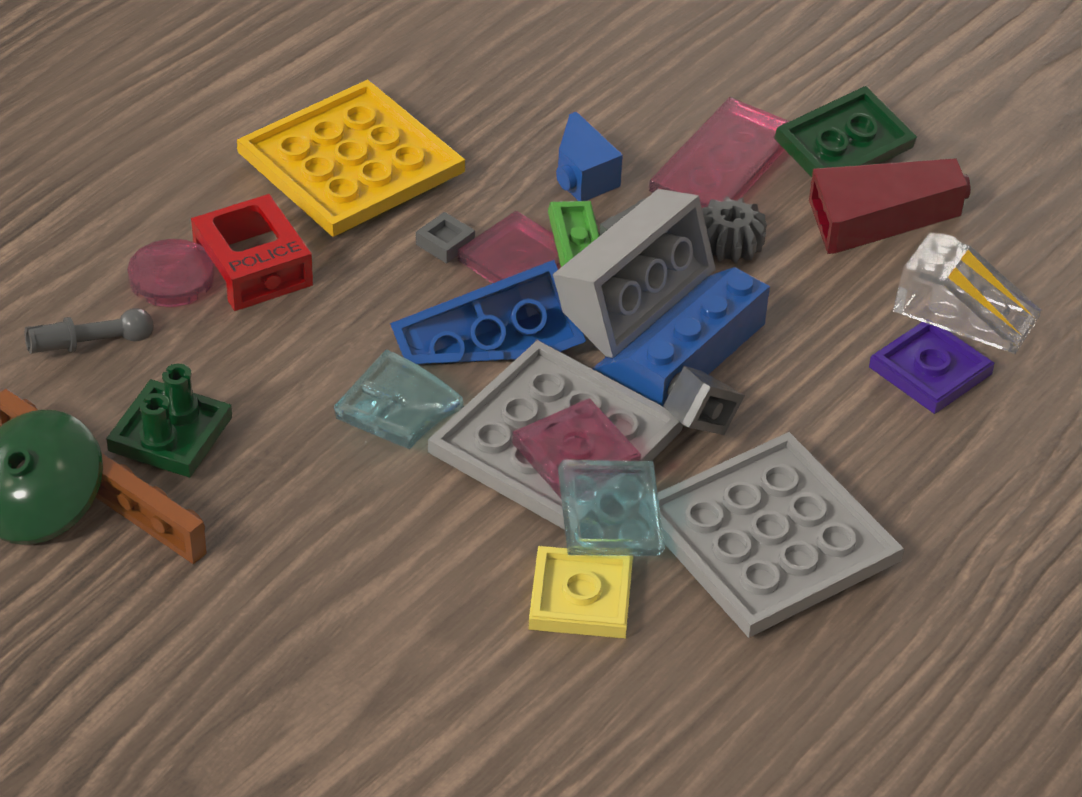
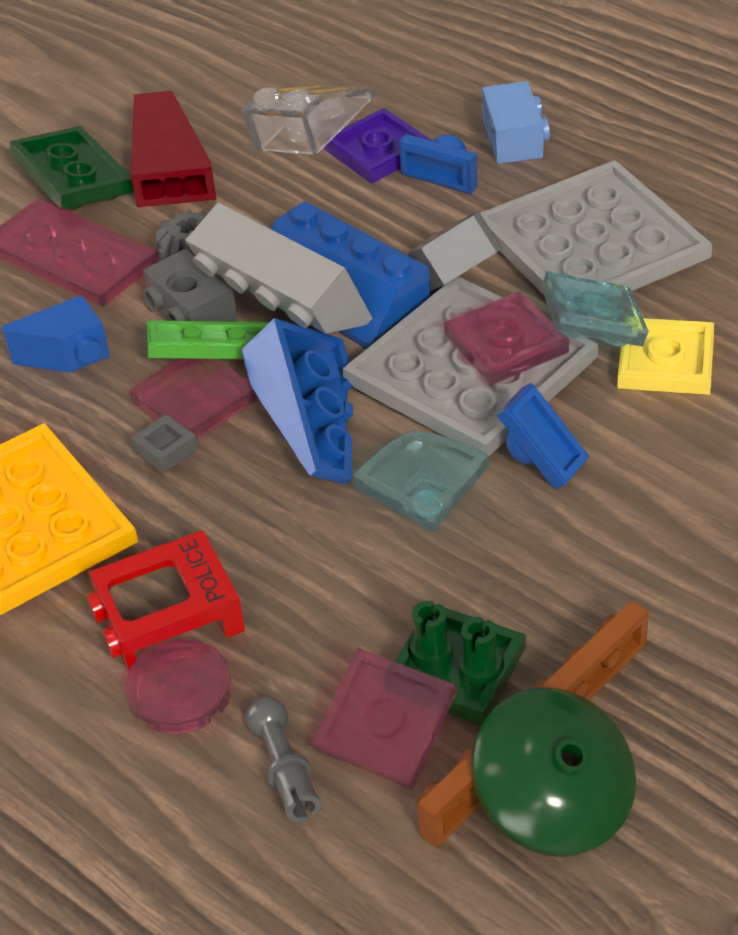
camera: 80 degrees left, 0 degrees up
(112, 382) = (385, 718): none -> clear pink tile
(429, 472) = (541, 437): none -> blue tile
(891, 407) = (439, 161): none -> blue tile
(974, 465) = (514, 122): none -> medium blue brick

